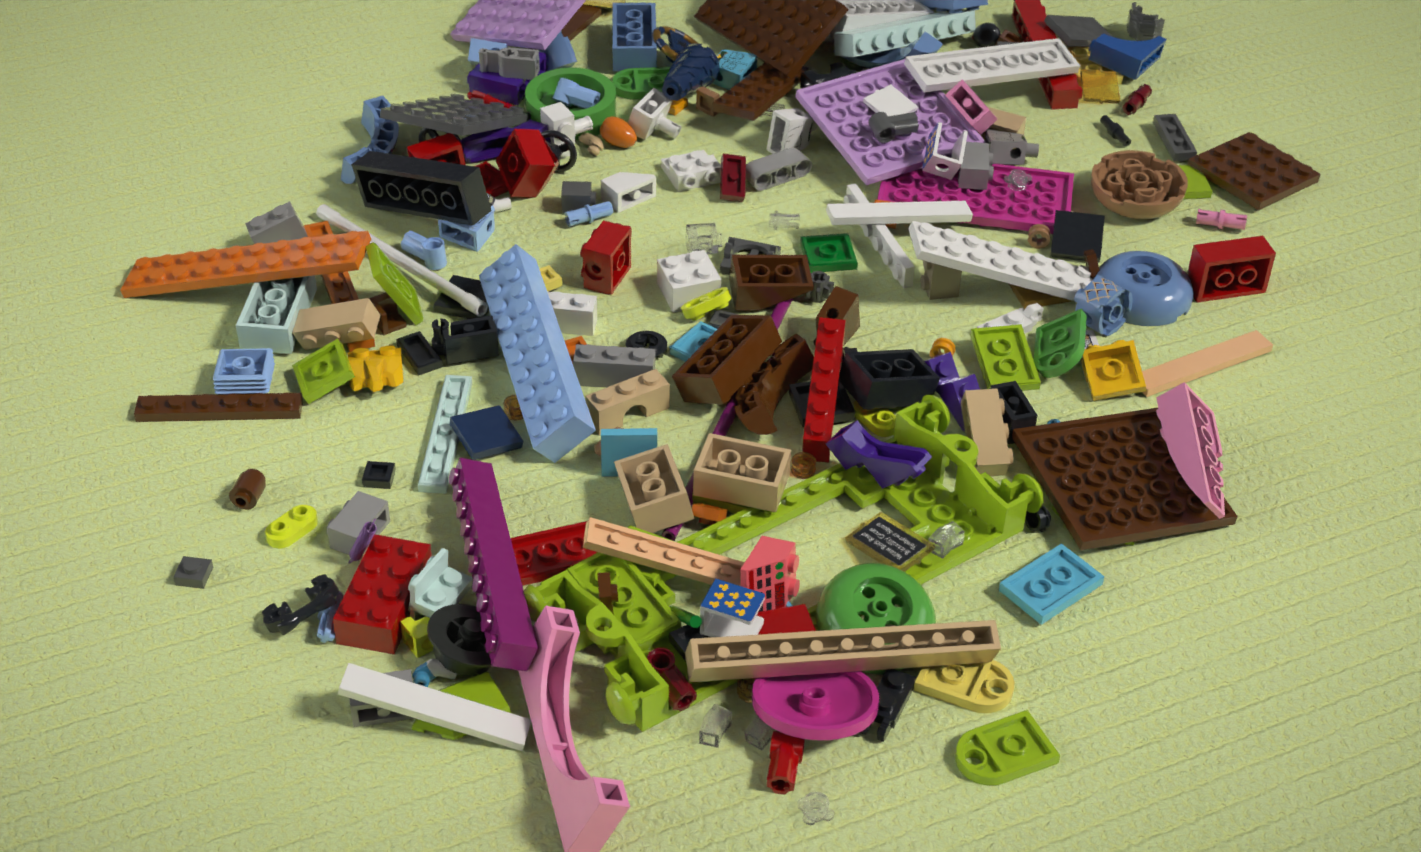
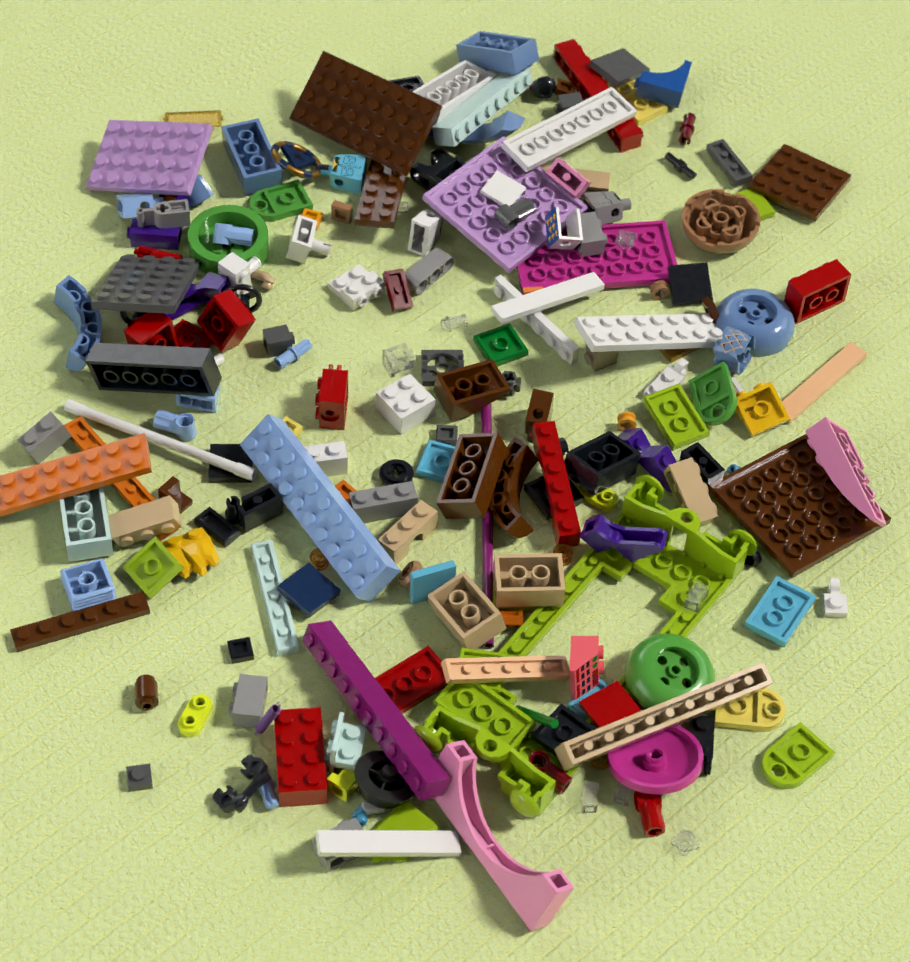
camera: 20 degrees left, 10 degrees up
(394, 283) = (176, 471): lime tile -> none
(607, 592) = (476, 714): reddish brown plate -> none
(618, 132) = (282, 264): orange animal -> none
(627, 189) = (315, 322): white slope -> none
(691, 70) = (320, 188): dark blue cone -> none
(712, 300) = (428, 422): neon yellow plate -> none
(731, 610) = (577, 708): piece -> none
(890, 542) = (655, 609): piece -> none
(1100, 86) = (653, 121): clear yellow piece -> none
(1128, 592) = (835, 603): none -> white plate
(1143, 26) = (666, 49): dark grey hair -> none
(1221, 219) = (791, 239): bright pink pin -> none

